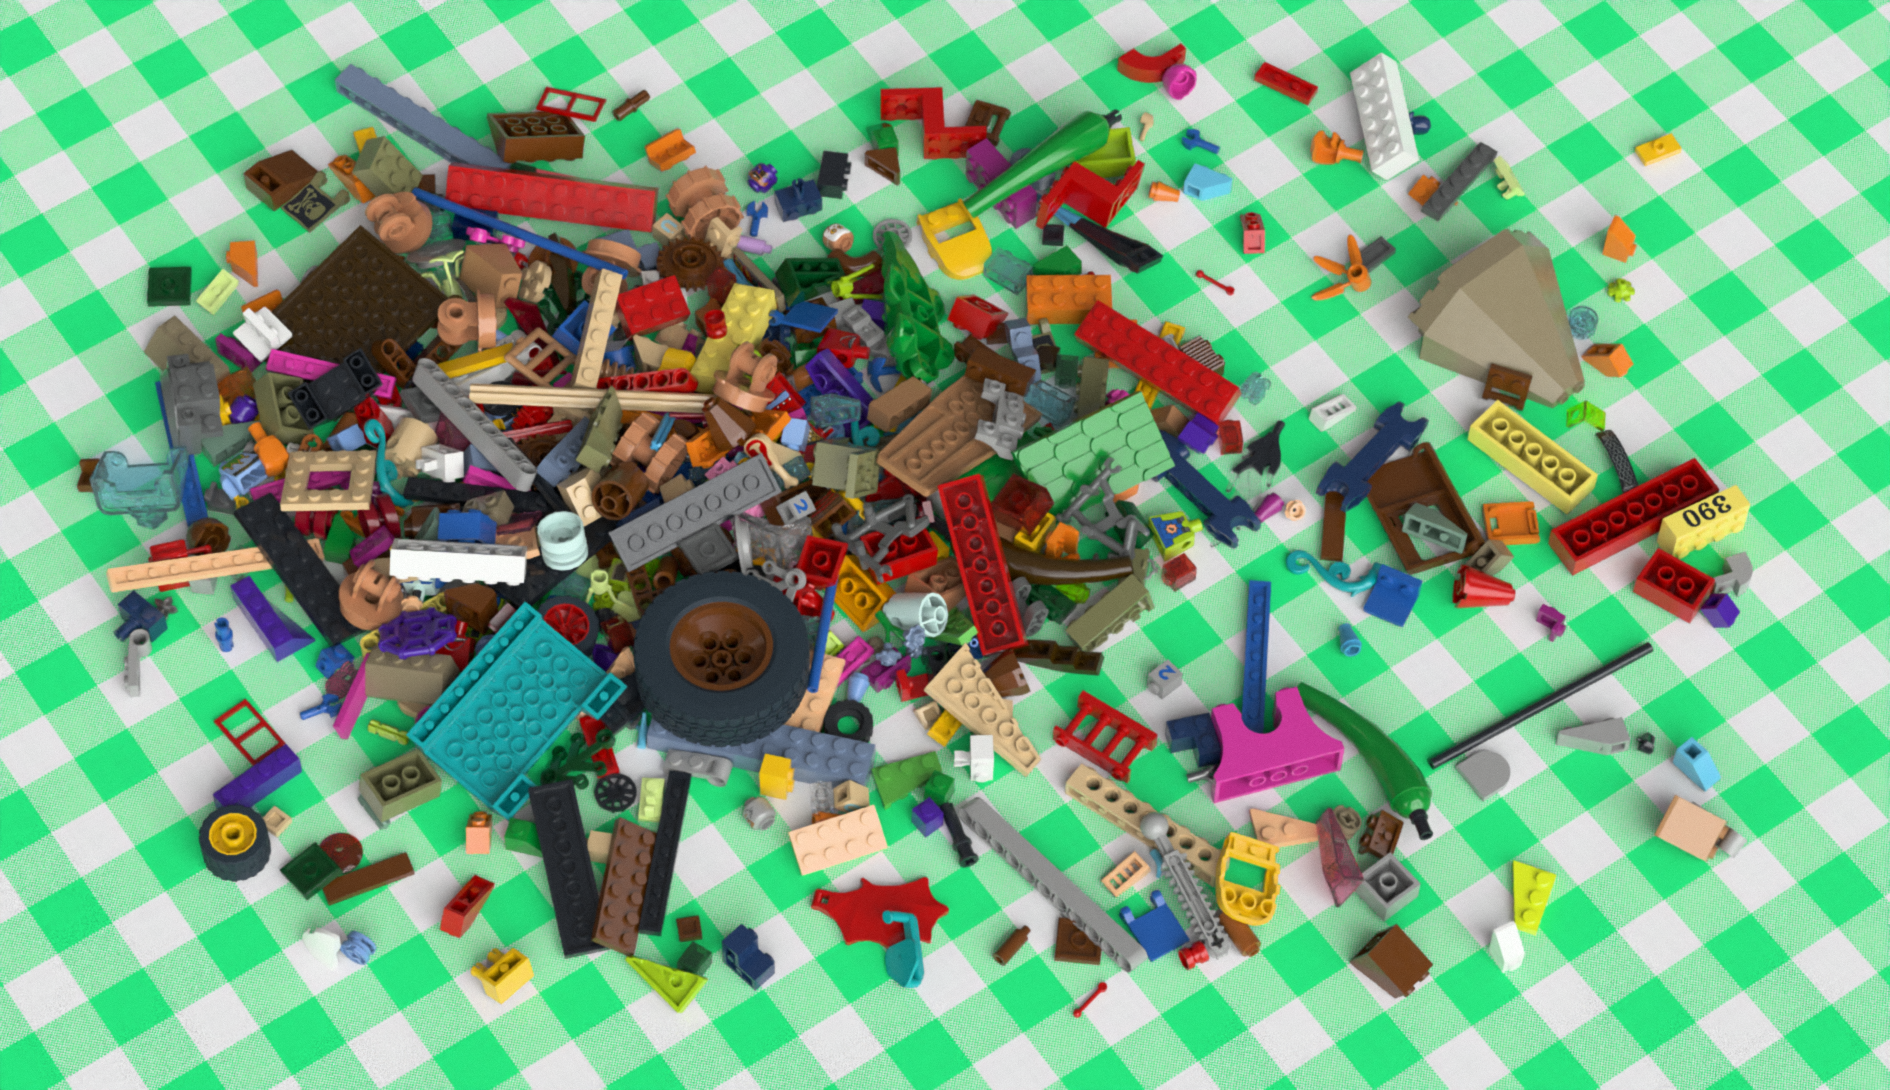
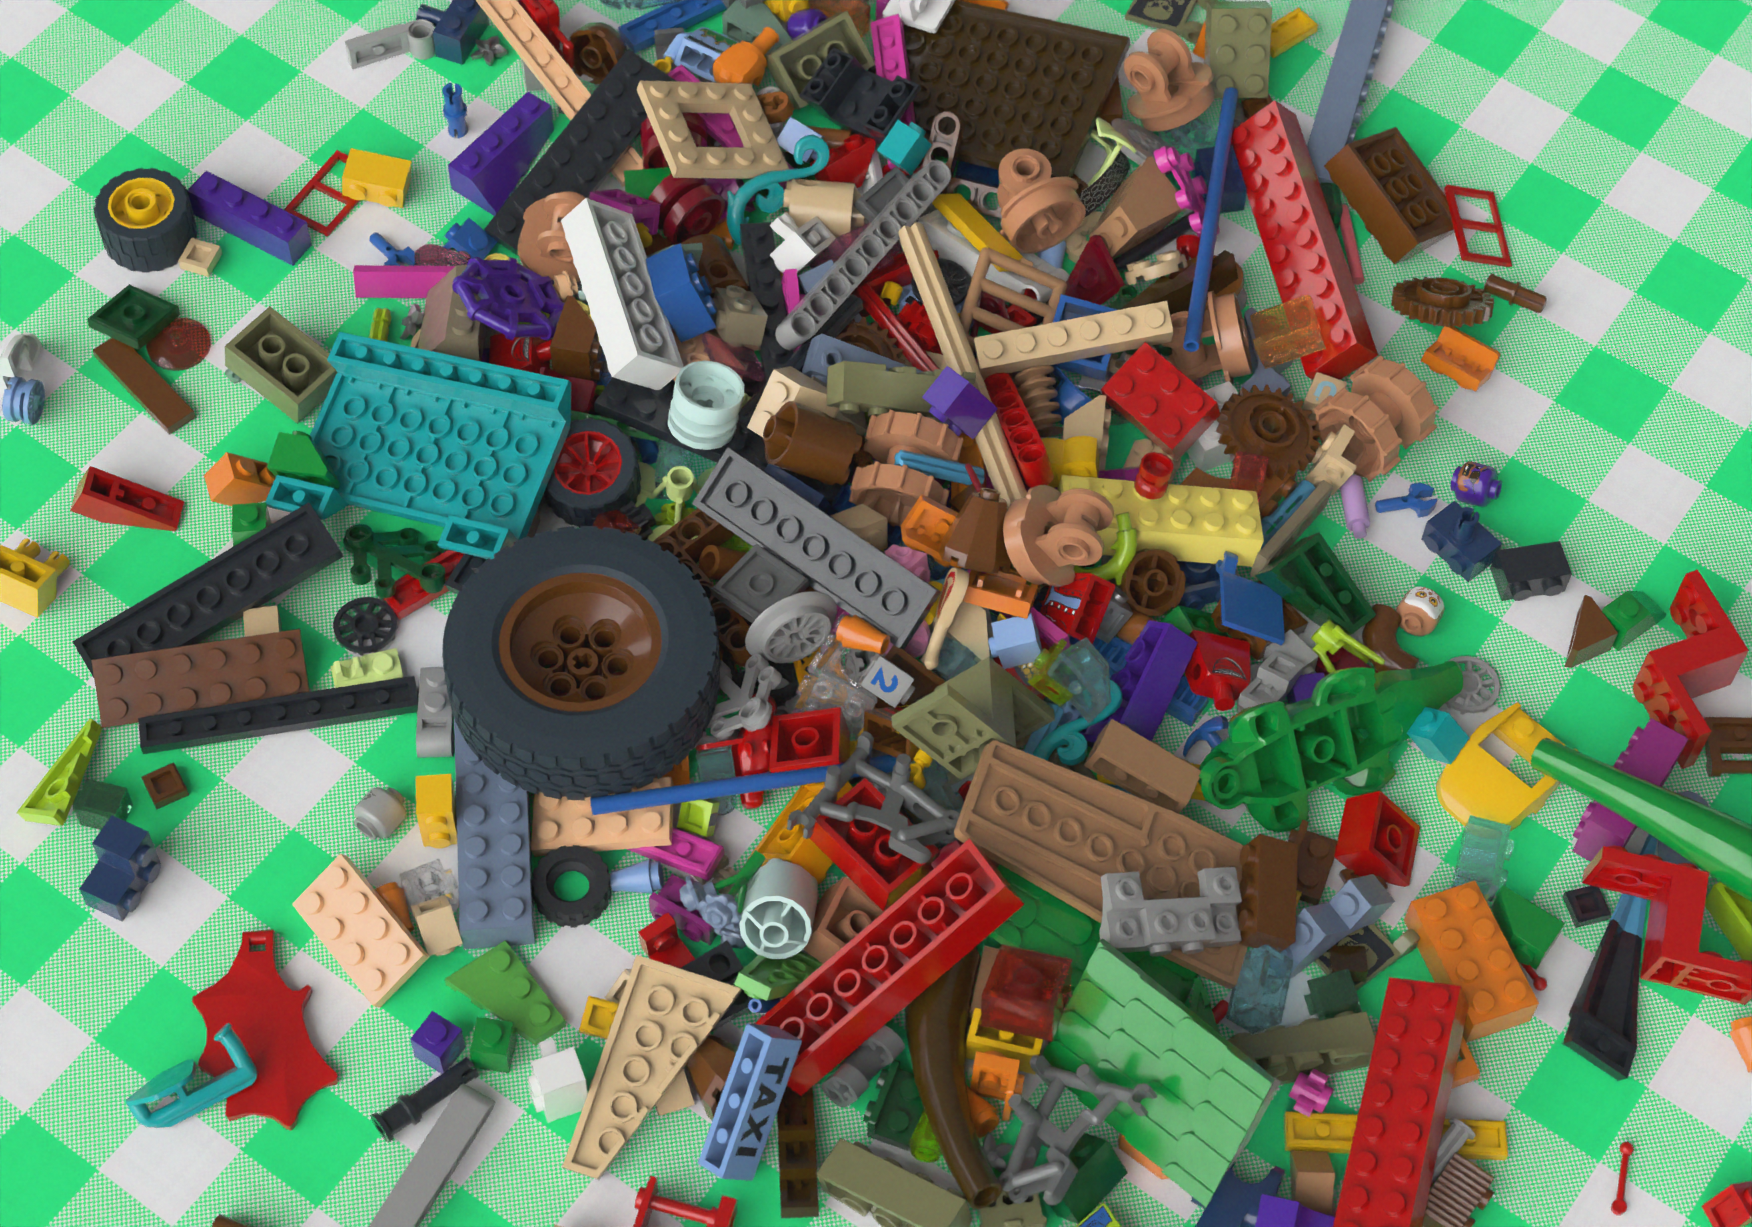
camera: 70 degrees right, 0 degrees up
(258, 698) = (376, 178): none -> yellow brick
(388, 708) = (412, 321): none -> flat silver plant
(392, 377) = (905, 146): none -> teal brick
(486, 789) = (301, 459): none -> green slope
(624, 224) = (1287, 331): none -> clear orange bracket
(628, 142) = (1442, 302): none -> reddish brown gear
(630, 401) = (958, 403): none -> dark purple piece
(765, 508) = (860, 635): none -> orange cone
(821, 424) = (1041, 680): none -> clear neon green bracket
(927, 259) = (1438, 735): none -> teal brick
(1034, 660) = (749, 1102): none -> medium blue brick

